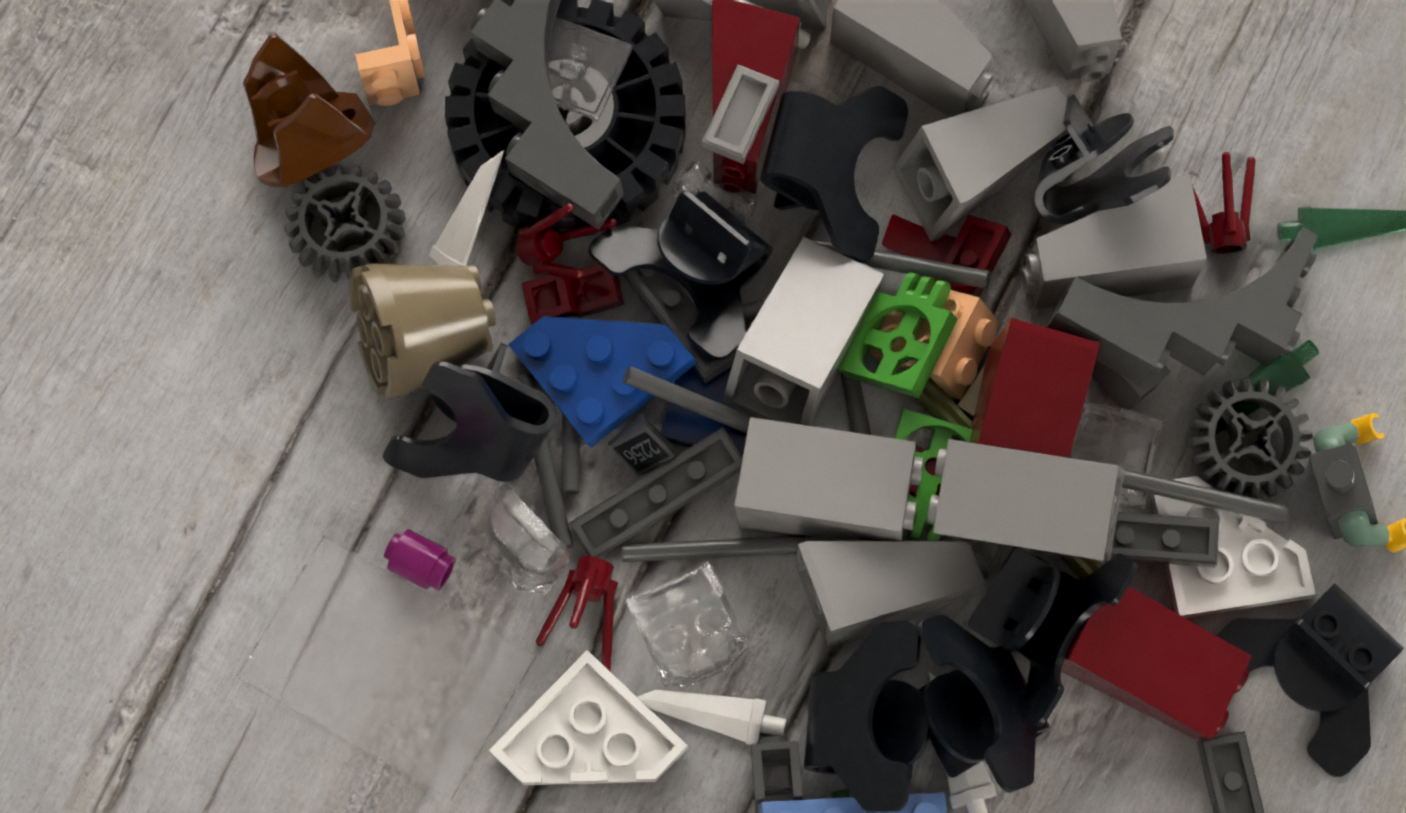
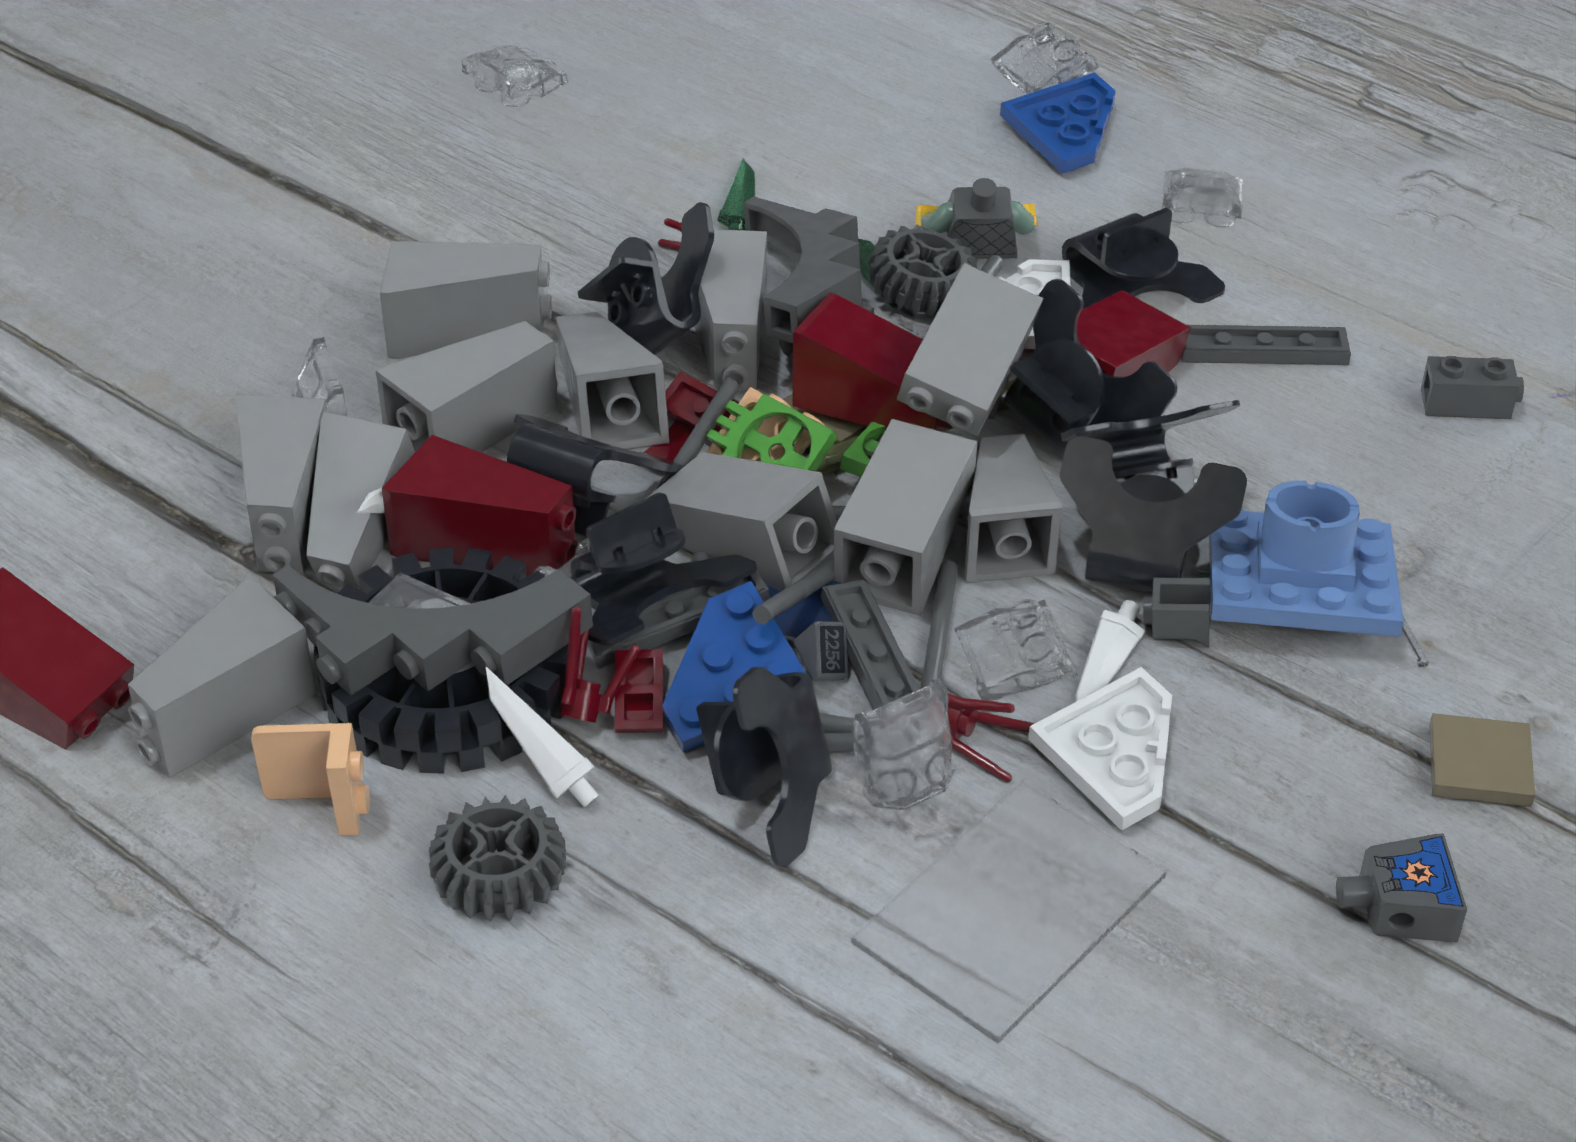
camera: 80 degrees left, 30 degrees down
(299, 116) = (379, 874): reddish brown piece -> none
(417, 319) = (647, 797): dark tan cone -> none
(419, 560) = (903, 848): magenta brick -> none
(740, 114) = (519, 482): light grey tile -> none

